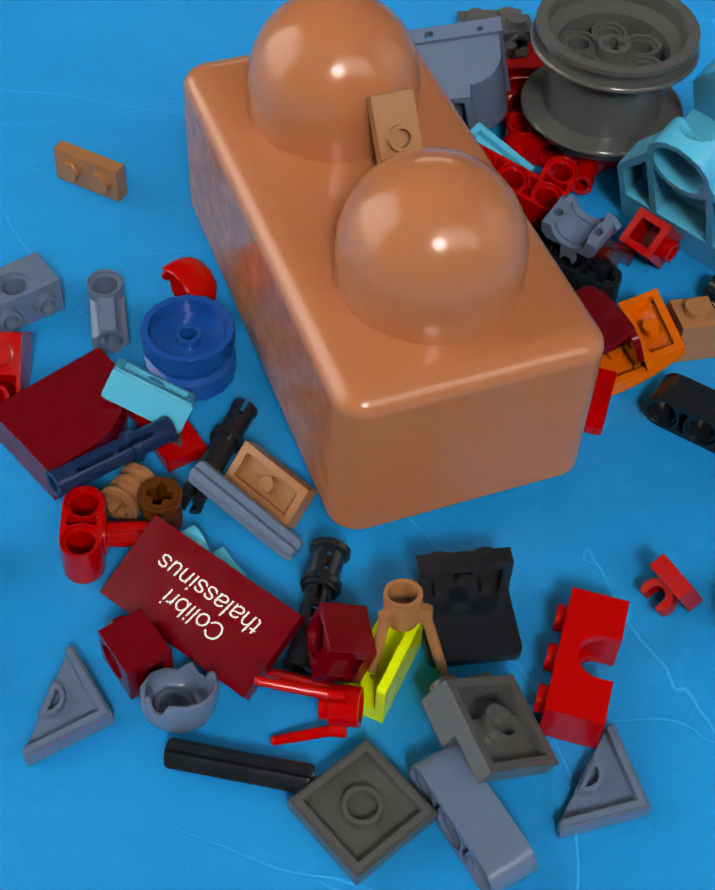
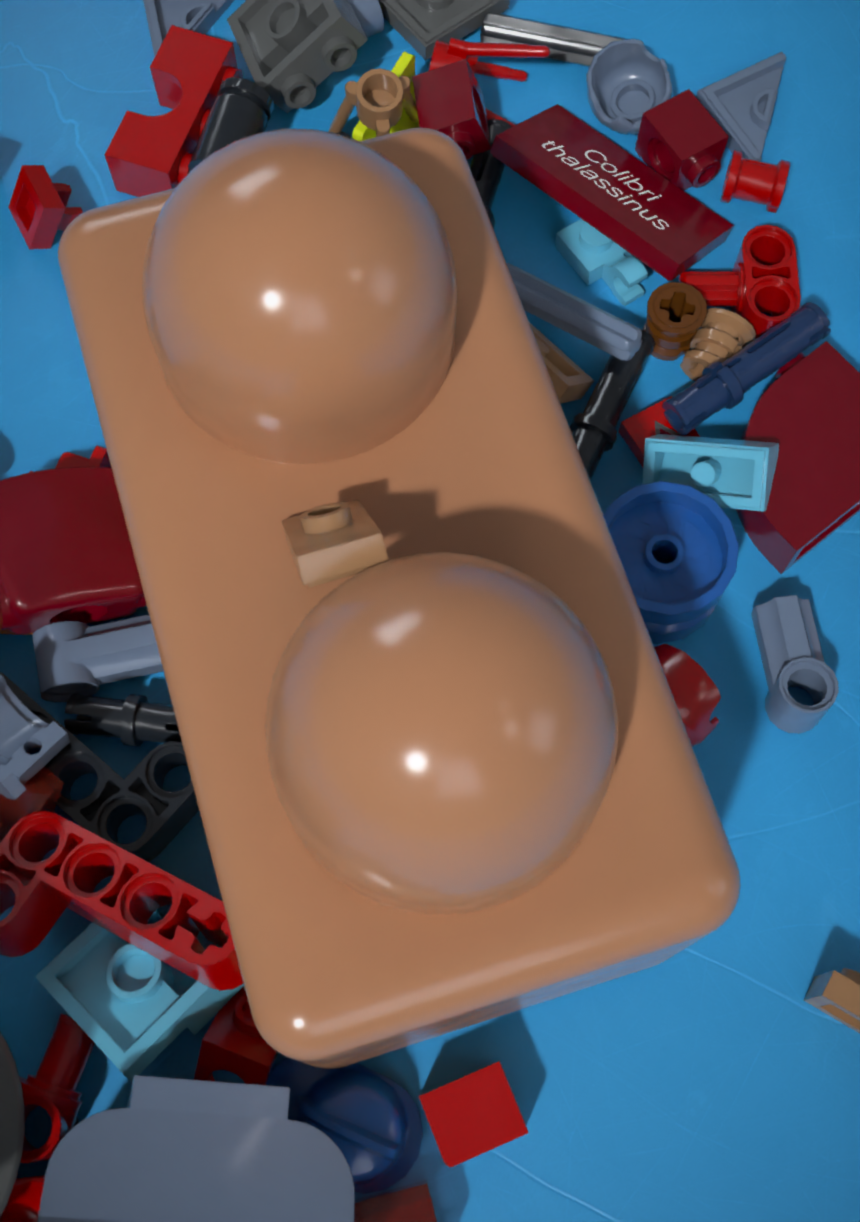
camera: 175 degrees left, 20 degrees up
(58, 624) = (755, 181): none -> red bush
(527, 627) = (236, 113): none -> black piece

